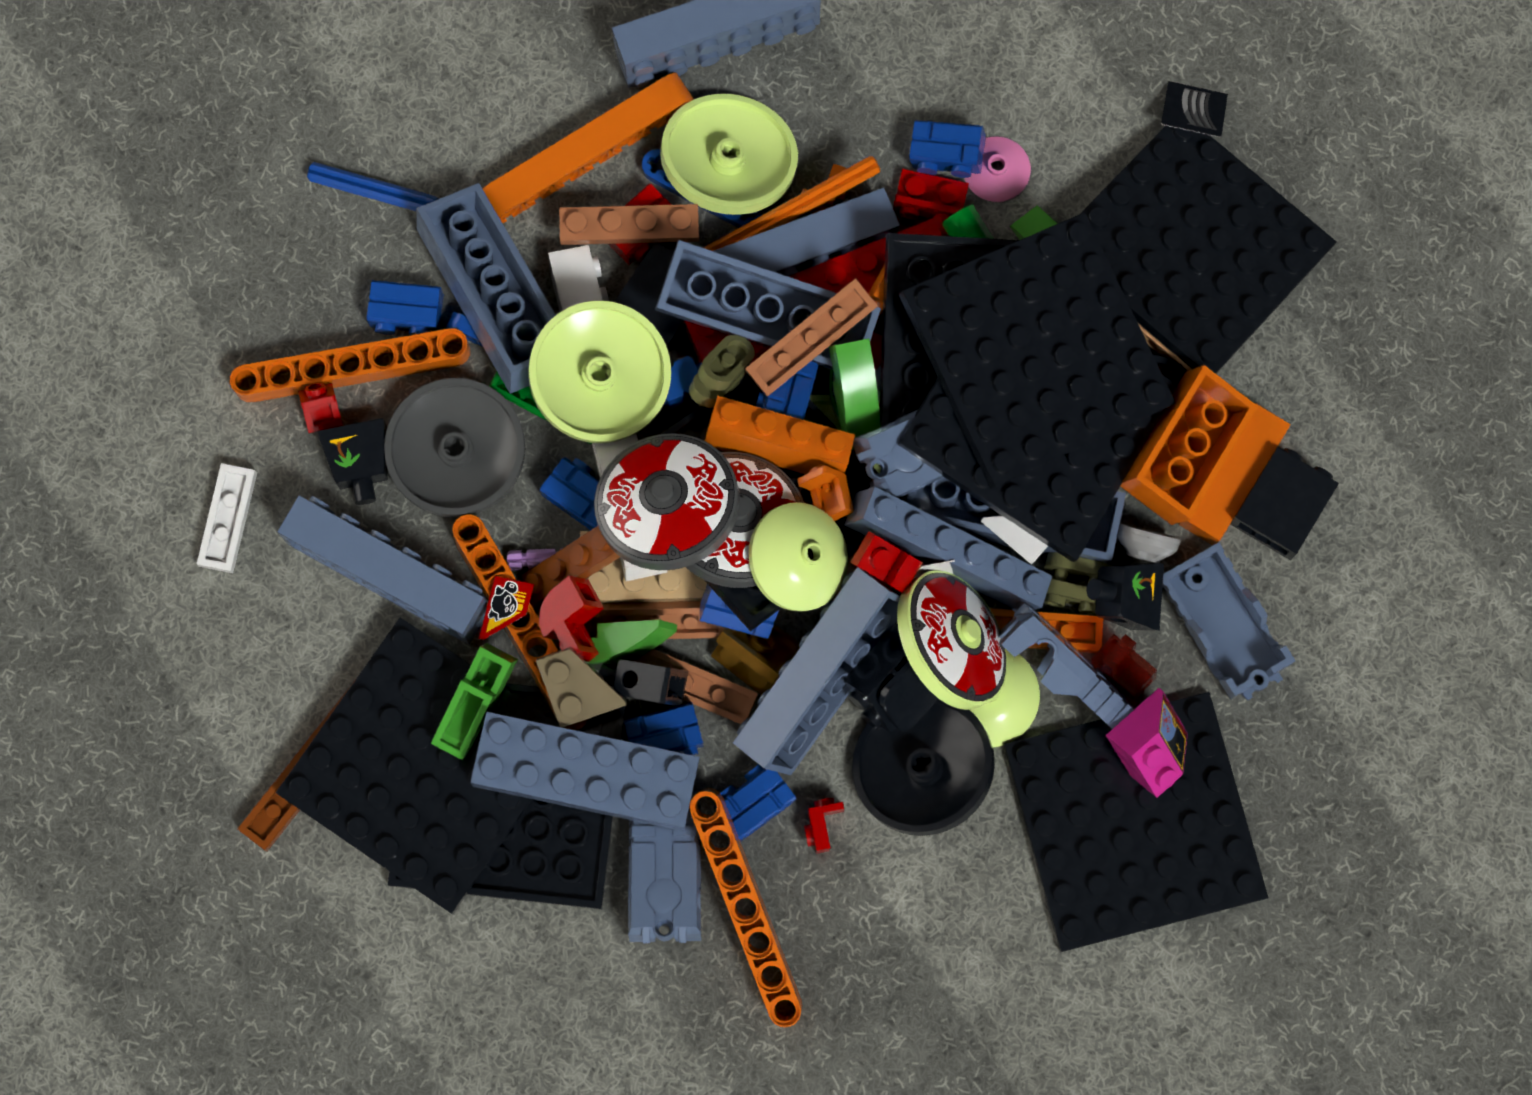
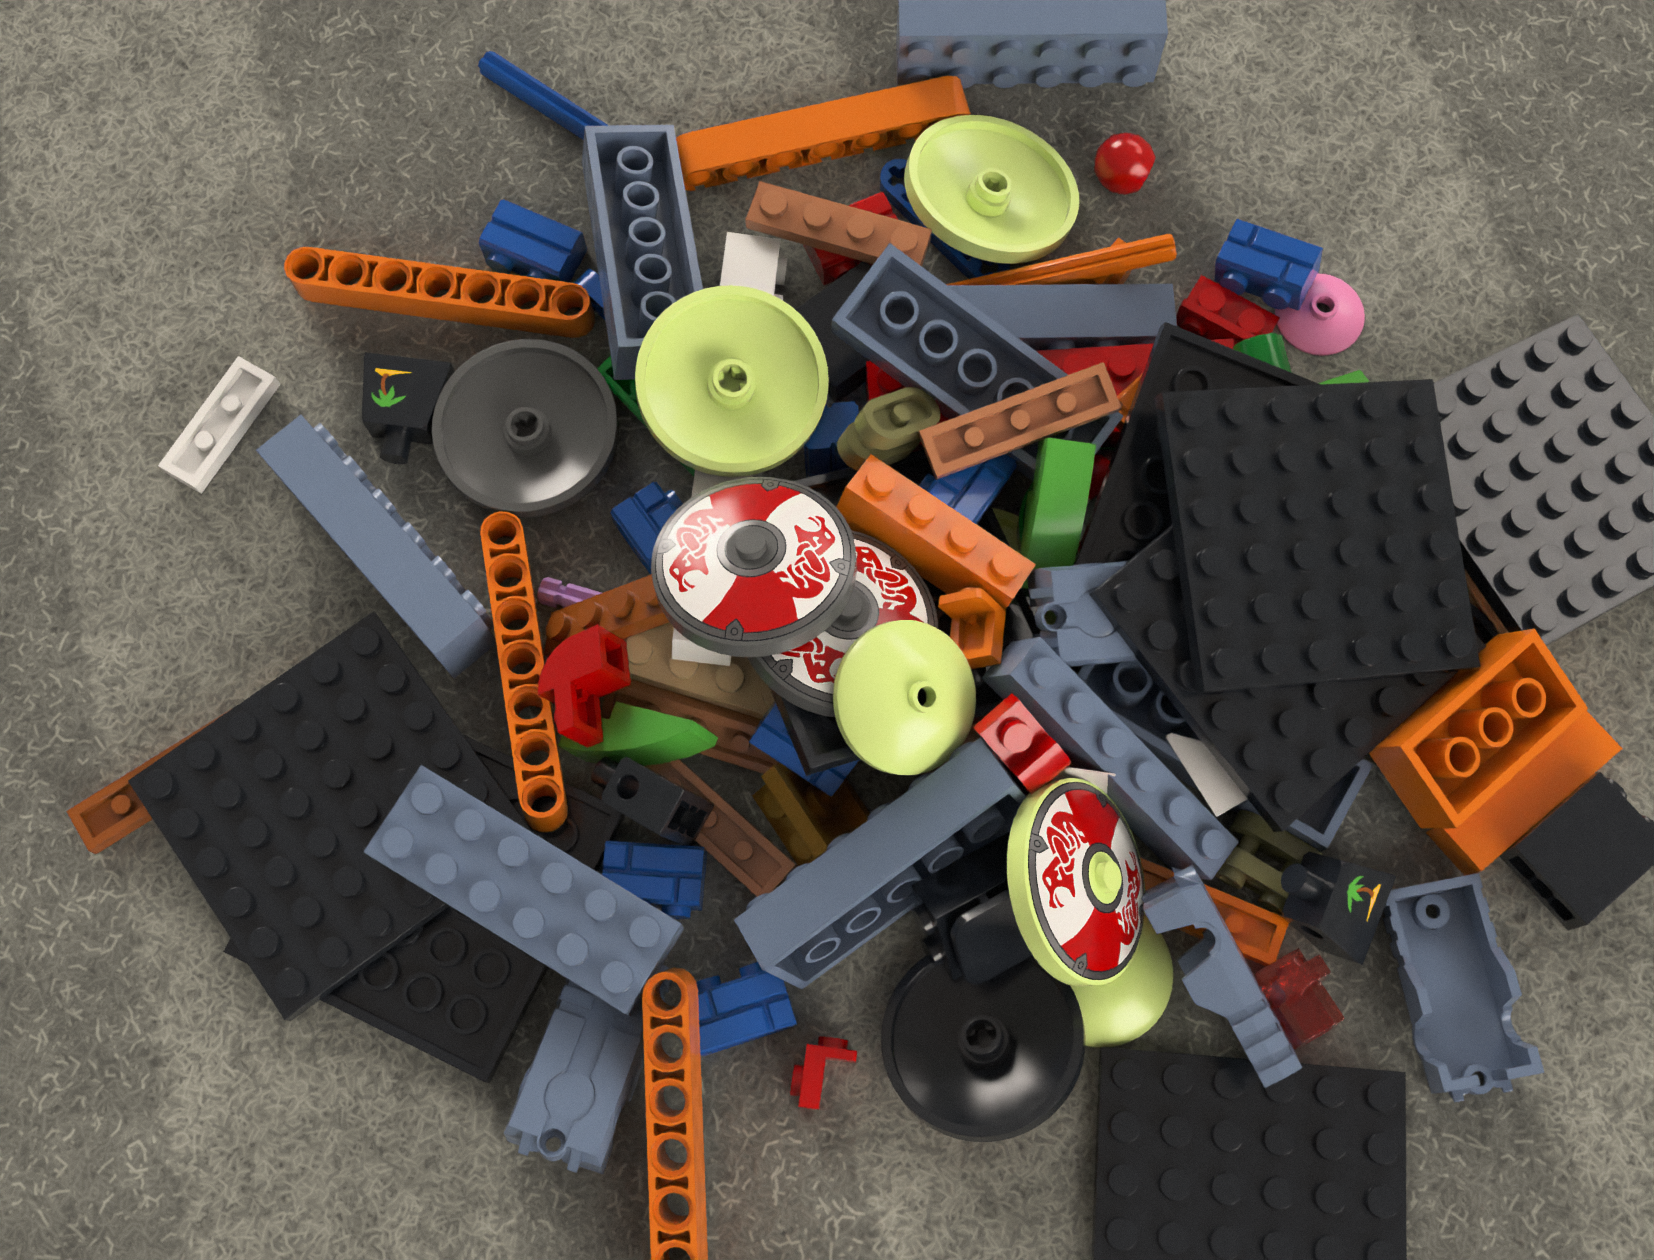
camera: 20 degrees right, 5 degrees down
(320, 407) = (382, 325): red bracket -> none
(472, 700) = (418, 739): bright green slope -> none
(506, 604) = (509, 639): sticker -> none
(576, 688) = (551, 775): dark tan wing -> none
(819, 101) = (1123, 163): none -> red piece
(1147, 543) = (1380, 842): light grey piece -> none
(1151, 743) = (1309, 1122): dark pink slope -> none
(1194, 109) = (1598, 317): black sticker -> none

